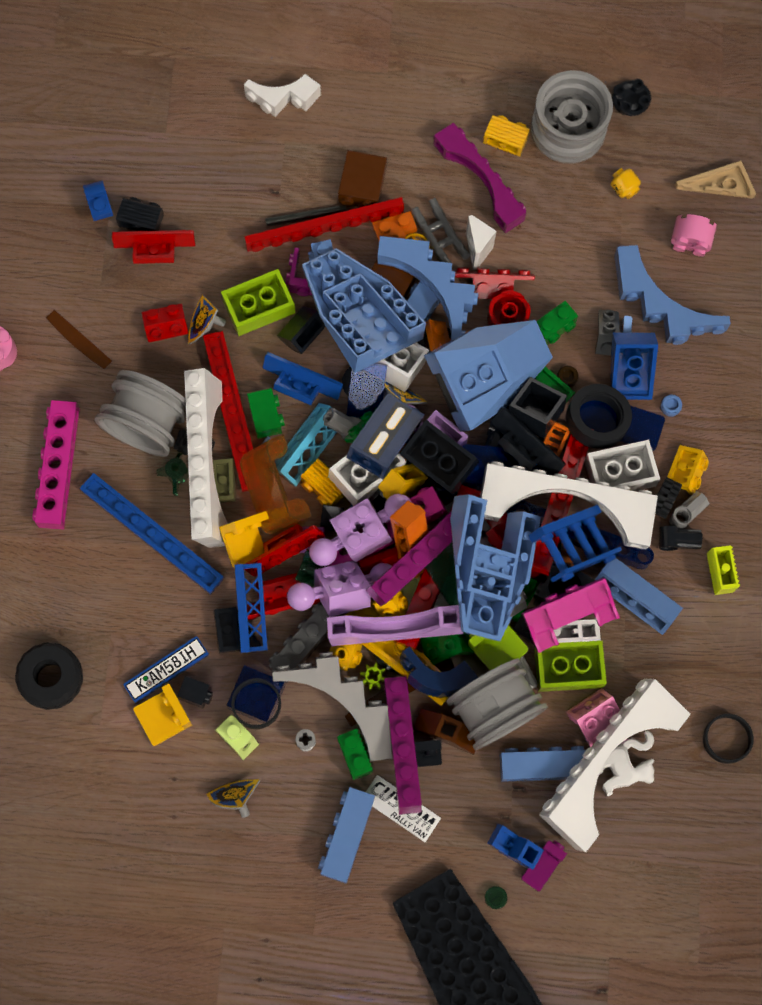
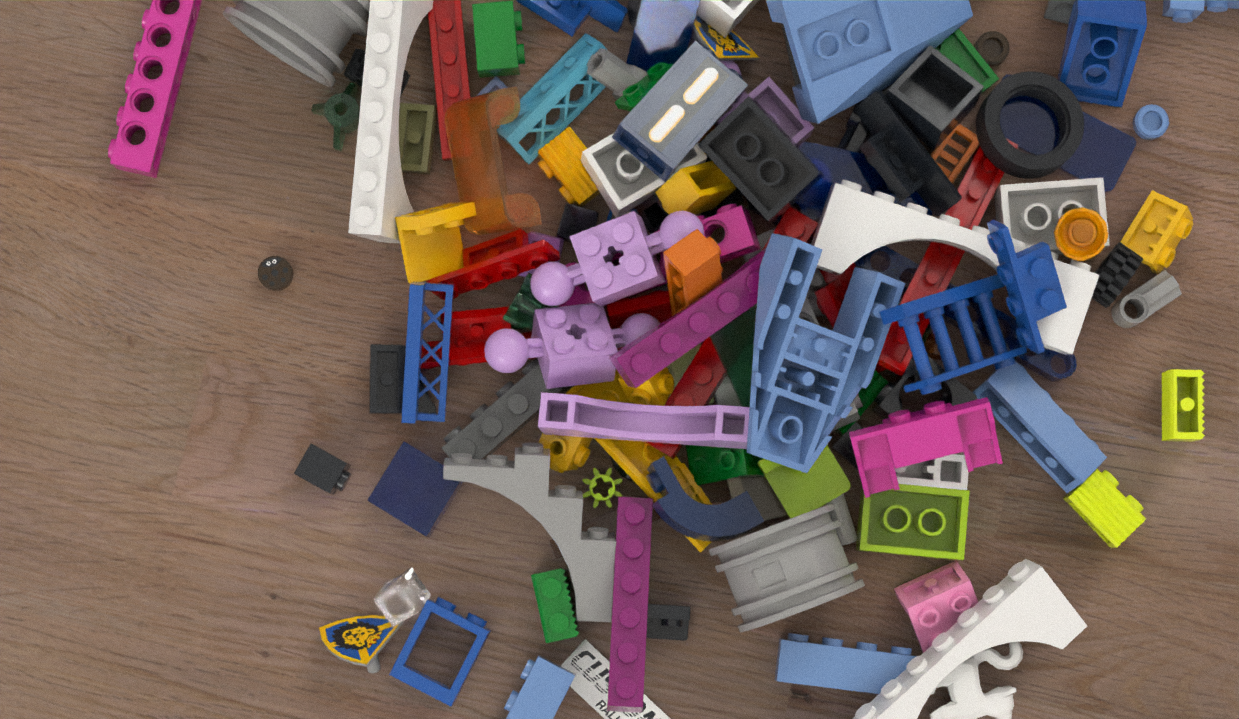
camera: 15 degrees right, 10 degrees up
(34, 661) = (72, 395): black tyre -> none
(147, 576) = (275, 273): none -> dark brown tile
(152, 533) = (291, 206): blue plate -> none
(162, 716) = (268, 498): yellow bracket -> none
(166, 669) = (284, 425): tile -> none
(236, 736) = (376, 548): yellowish green torso -> none
(250, 681) = (384, 484): black tyre -> none
(257, 764) = (402, 597): none -> clear brick
(280, 818) = (425, 683): none -> blue window
(299, 736) = (476, 562): light grey bush -> none
(444, 729) = (698, 588): reddish brown slope -> none
(616, 506) = (1029, 281): none -> blue bracket
(641, 473) = (1080, 234): none -> light orange hair
(673, 538) = (1114, 341): black piece -> none
(688, 640) = (1106, 508): none -> neon yellow brick
(749, 732) = (1175, 670): black tyre -> none

